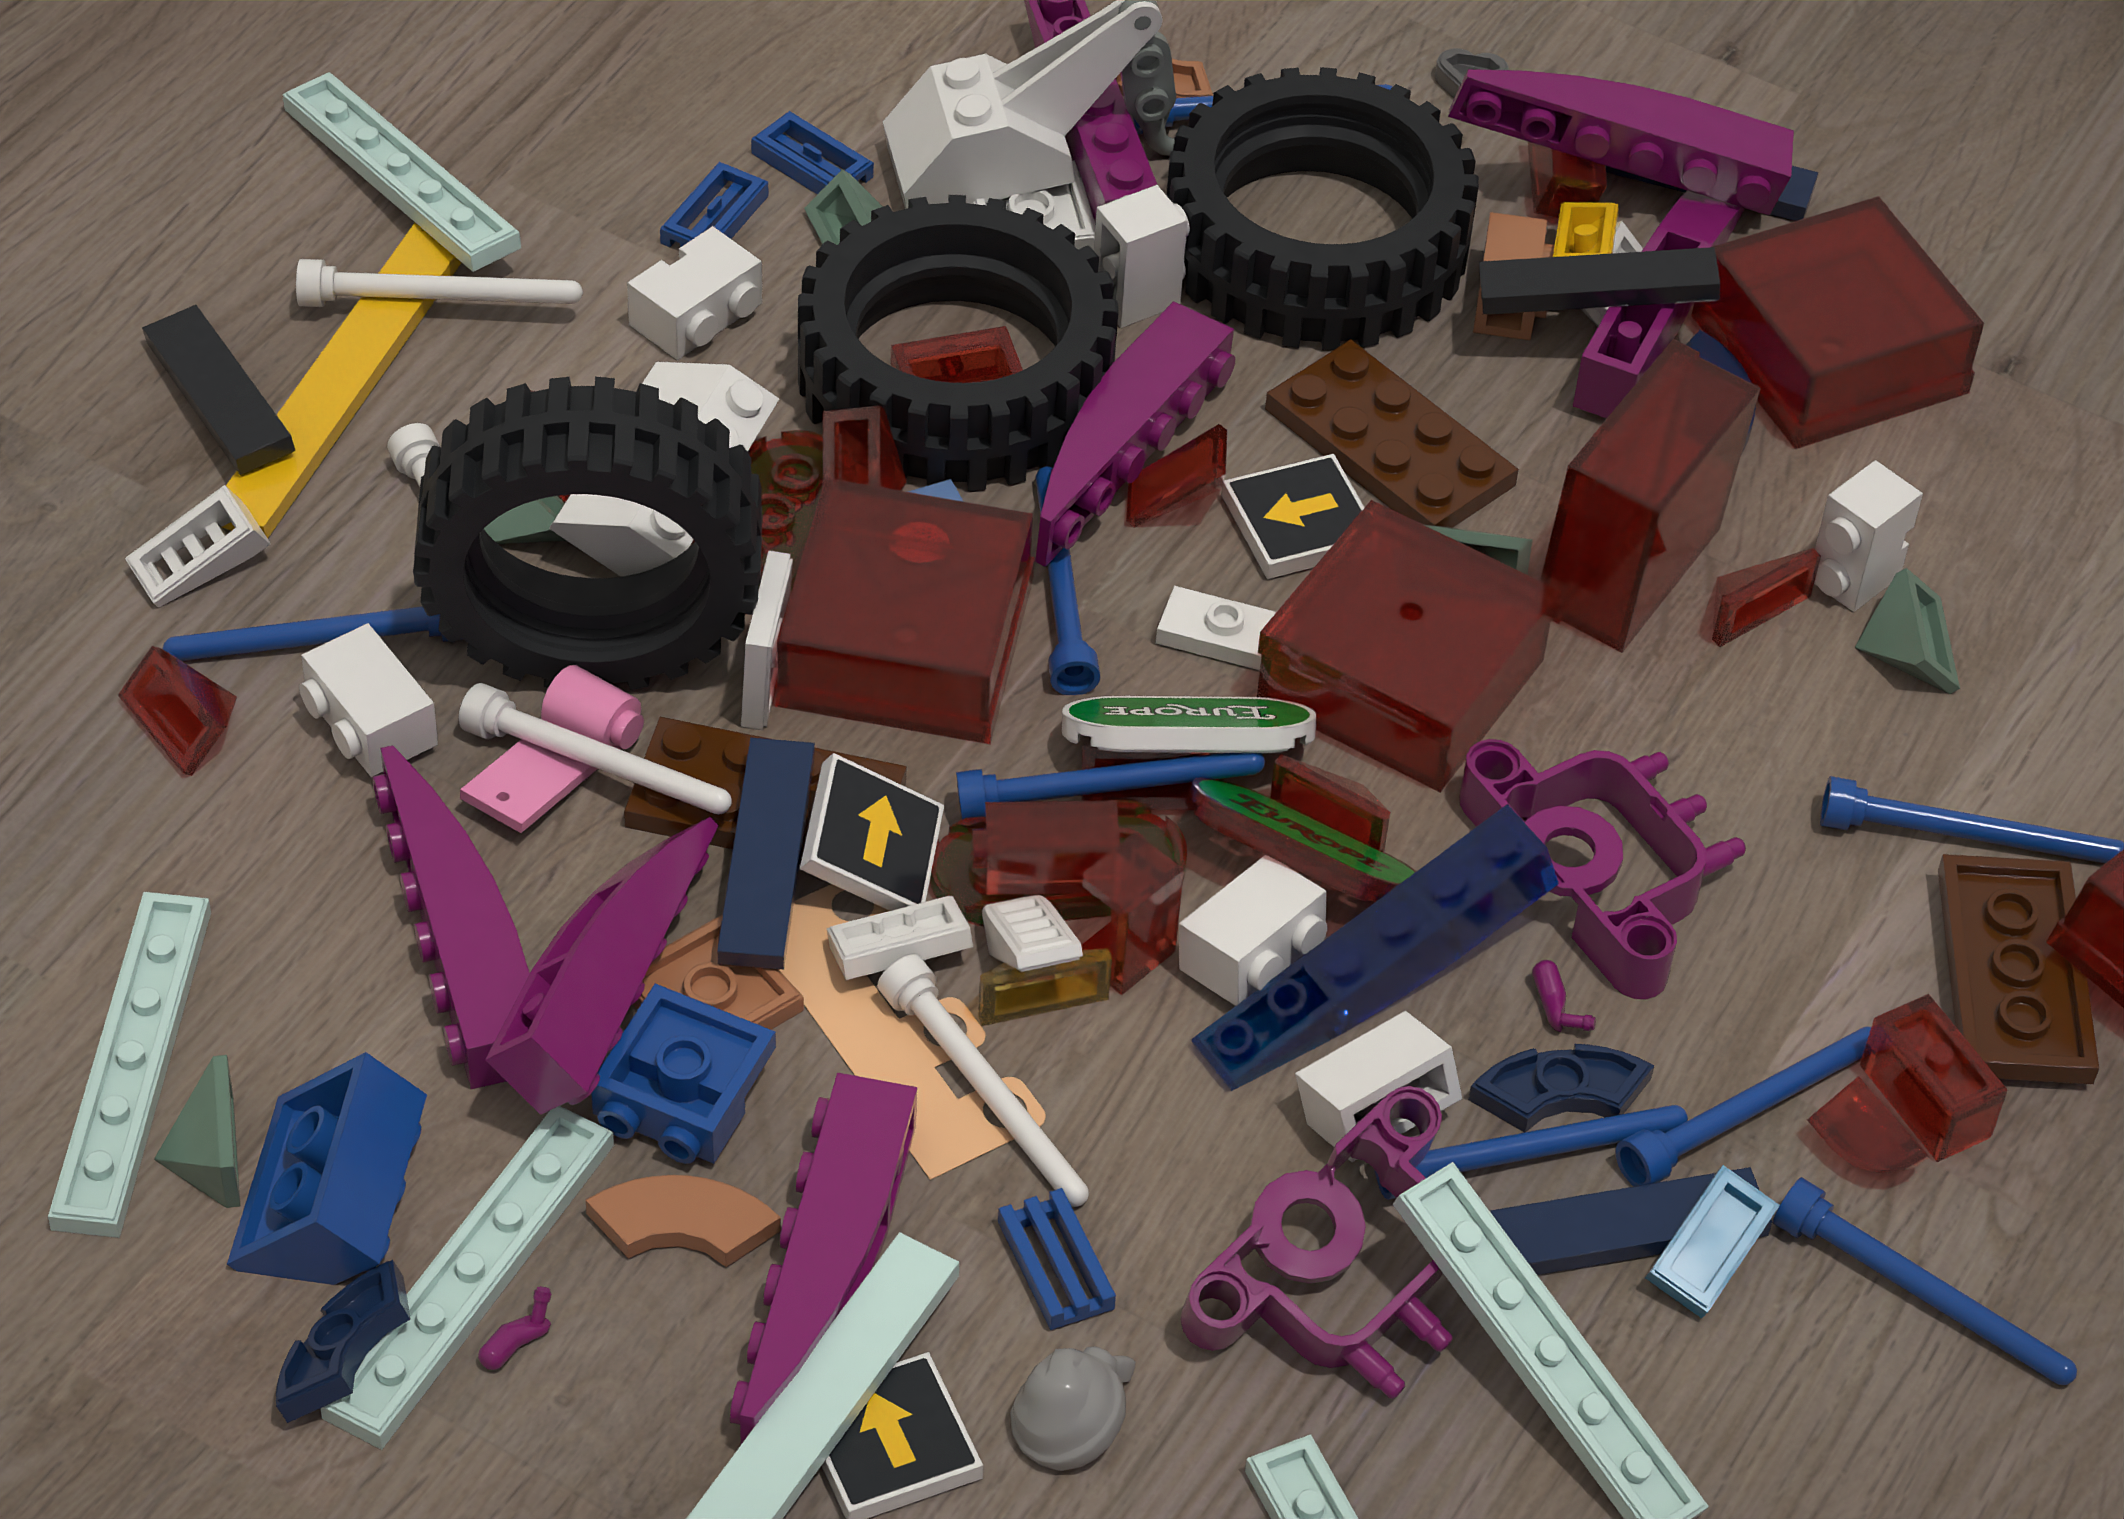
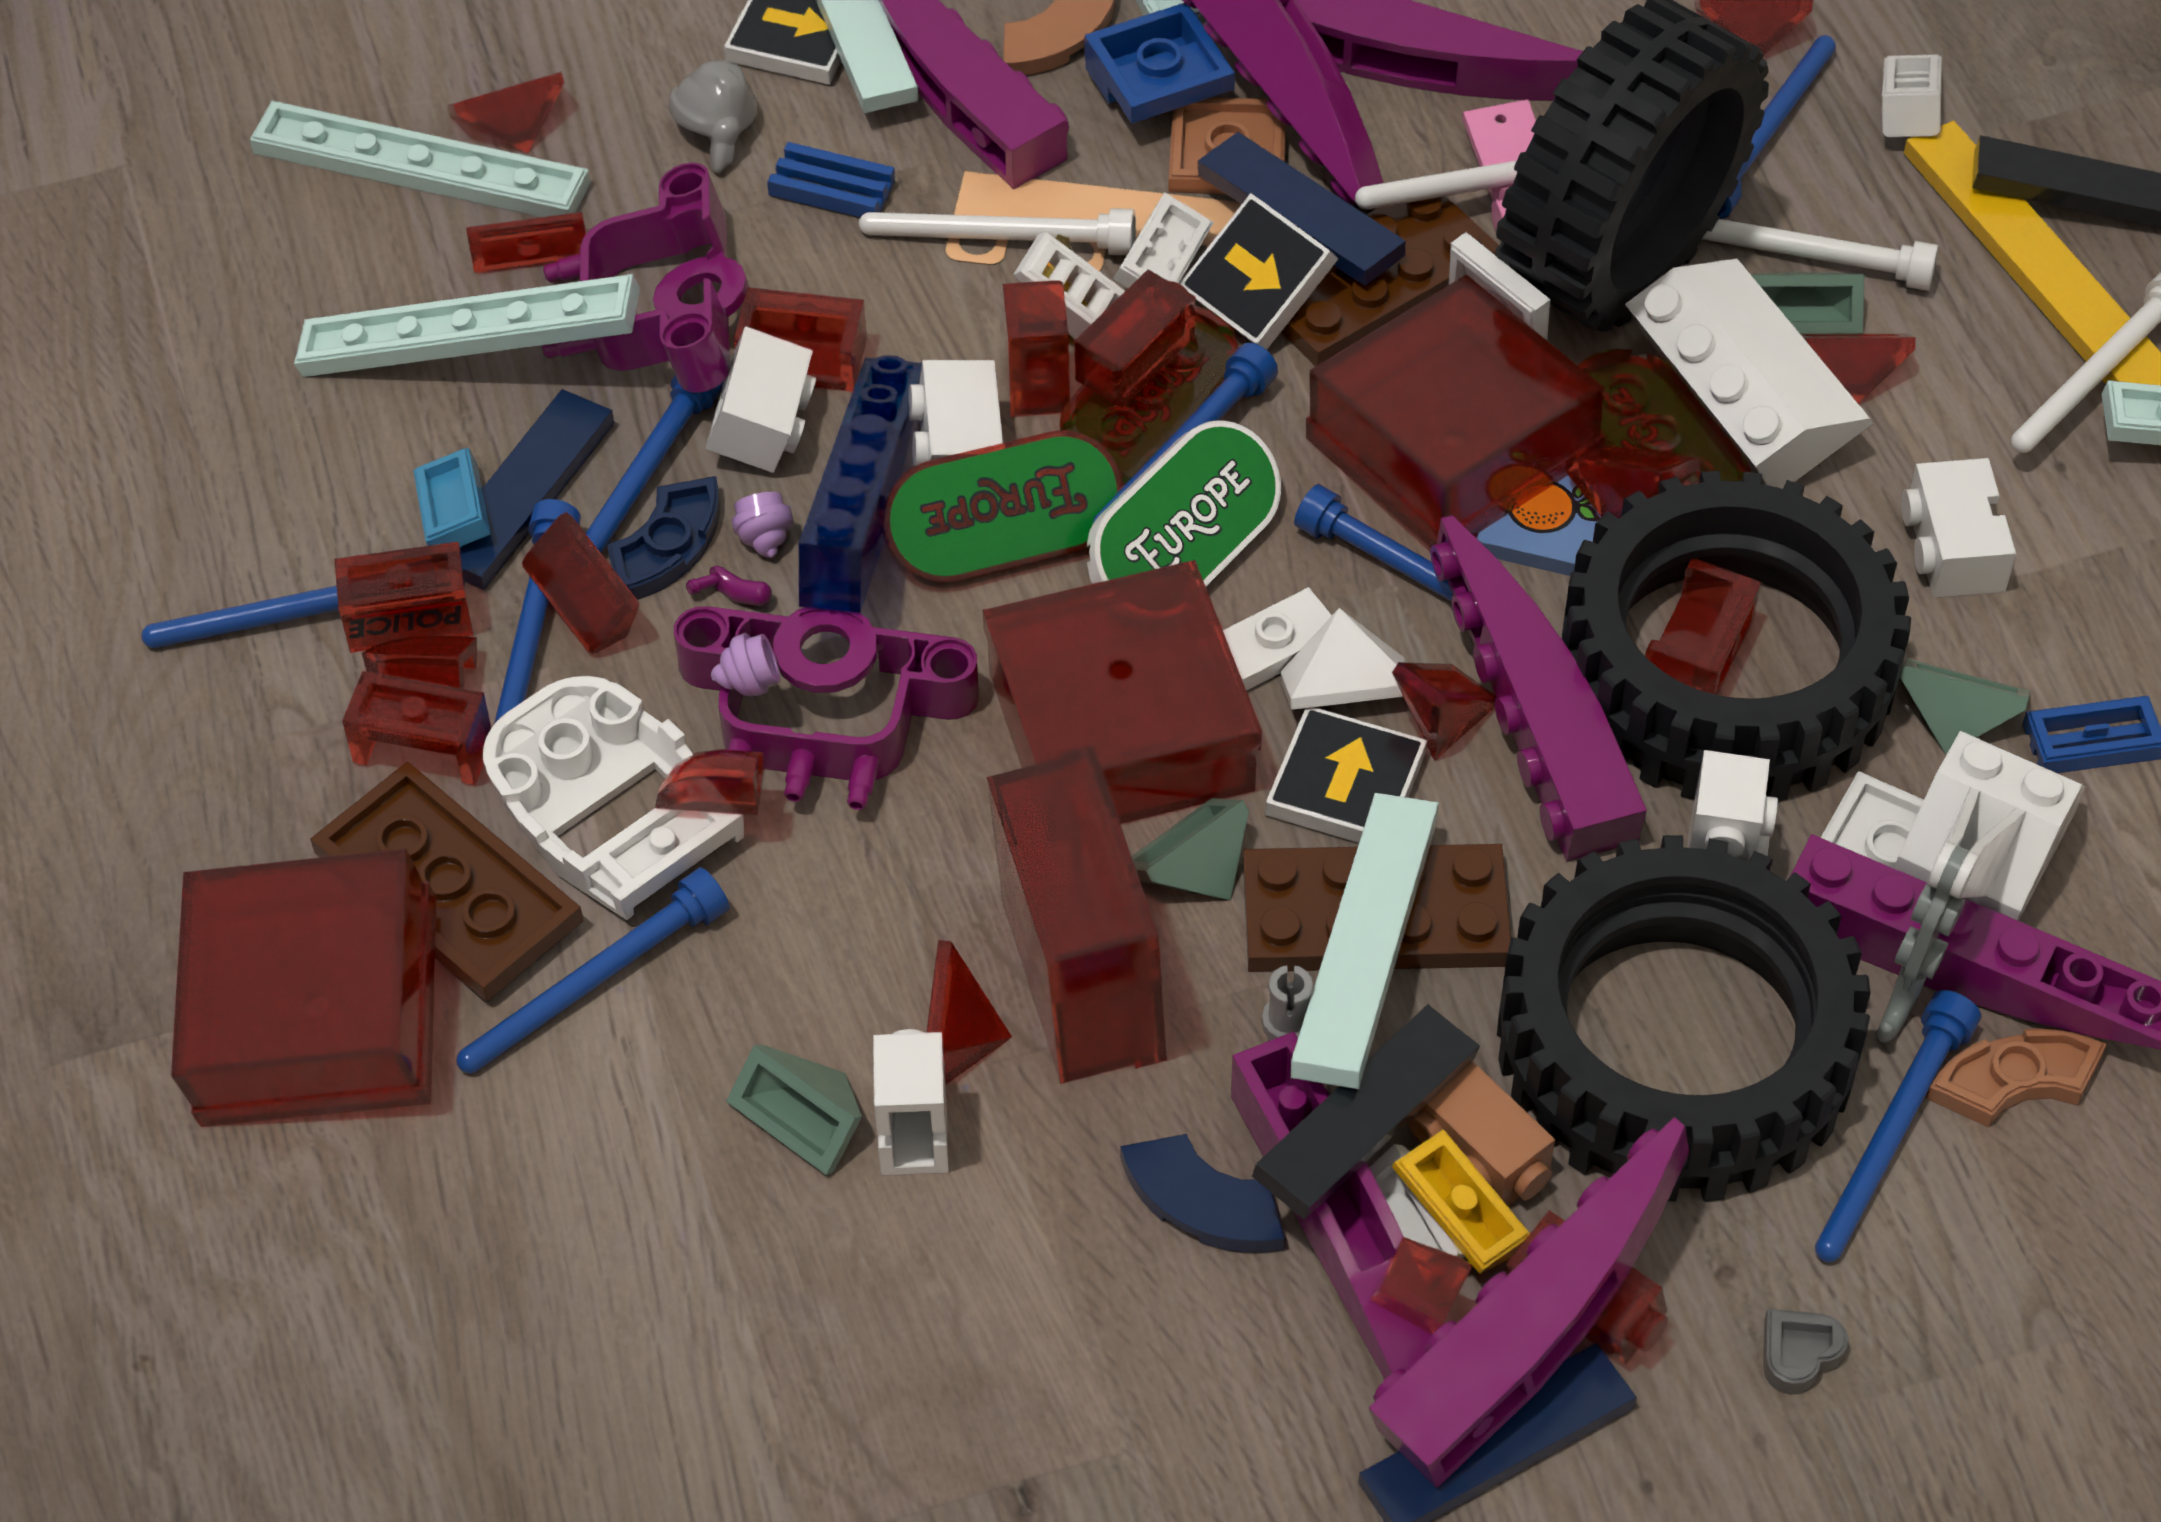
camera: 135 degrees right, 5 degrees up
(724, 213) = (2063, 626): blue tile -> none
(1218, 557) = (1341, 667): none -> white slope
(1260, 1120) = (817, 322): none -> clear red panel
(1331, 800) = (1028, 567): clear red slope -> none
(1378, 1435) = (525, 242): none -> clear red slope
(1460, 366) = (1365, 942): none -> light aqua tile
(1480, 1015) = (762, 522): none -> lavender plate
(1562, 385) = (1287, 1002): none -> light grey pin
(1660, 856) = (747, 665): none -> lavender plate
(1679, 198) = (1421, 1284): none -> clear red slope
(1690, 1072) = (581, 585): none -> clear red slope
(1771, 812) = (715, 783): none -> clear red brick
(1829, 973) = (575, 752): none -> white slope
(1841, 322) = (1176, 1331): clear red container -> none
(1844, 1176) = (402, 595): none -> clear red panel

